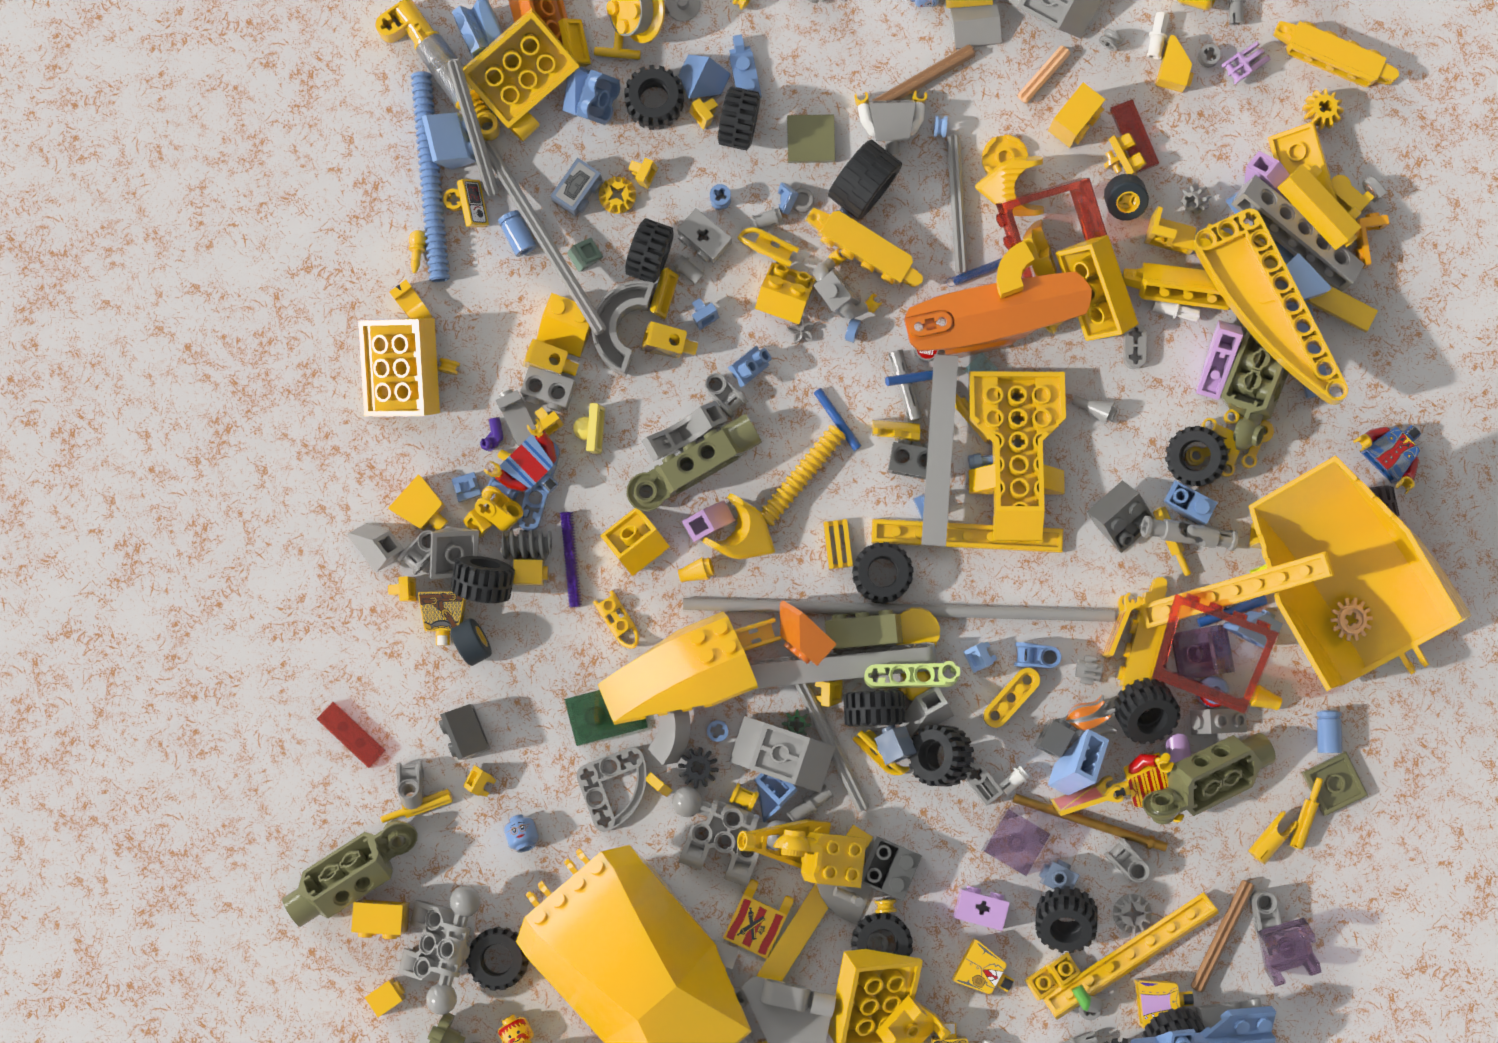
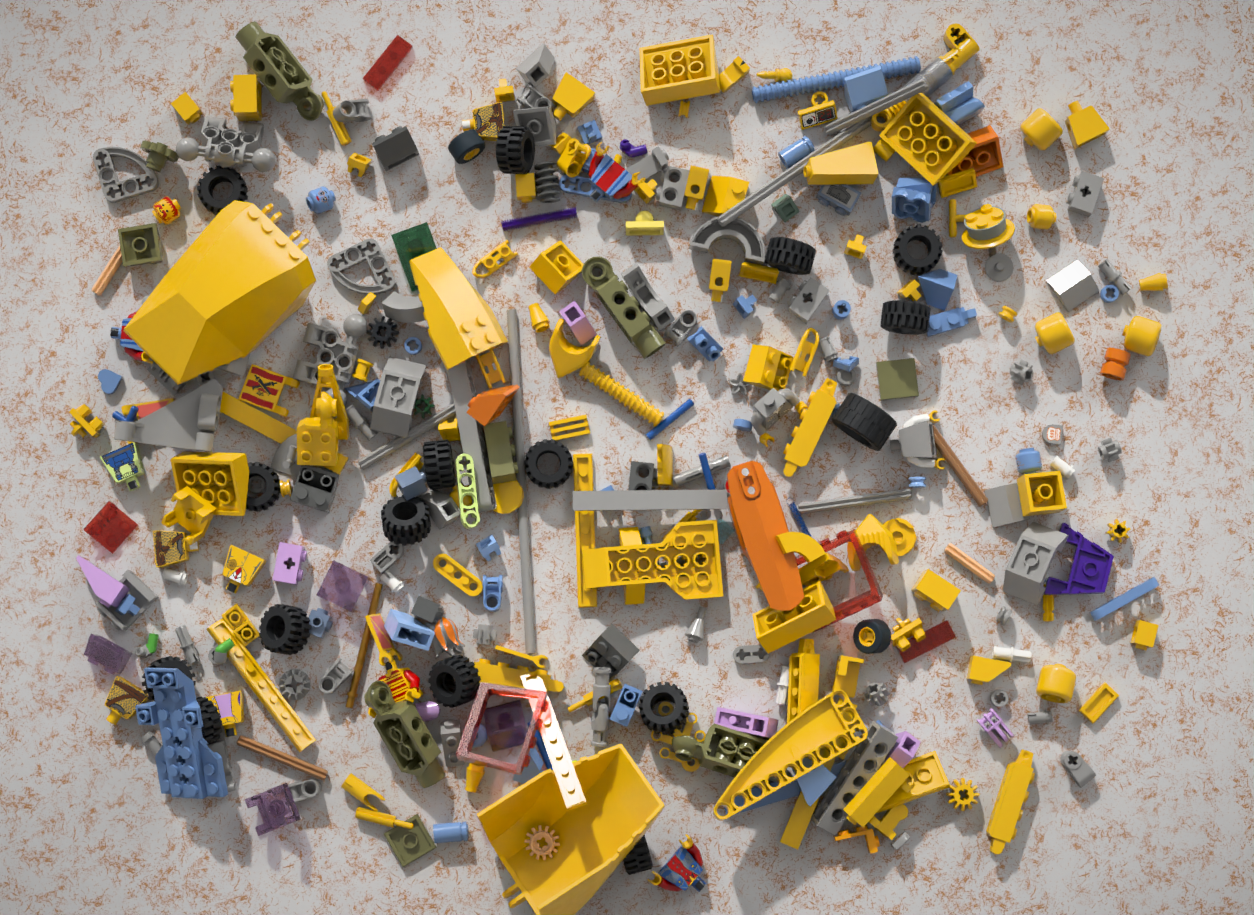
camera: 80 degrees right, 0 degrees up
(543, 174) = (843, 166): none -> yellow slope
(615, 205) = (836, 238): yellow gear -> none

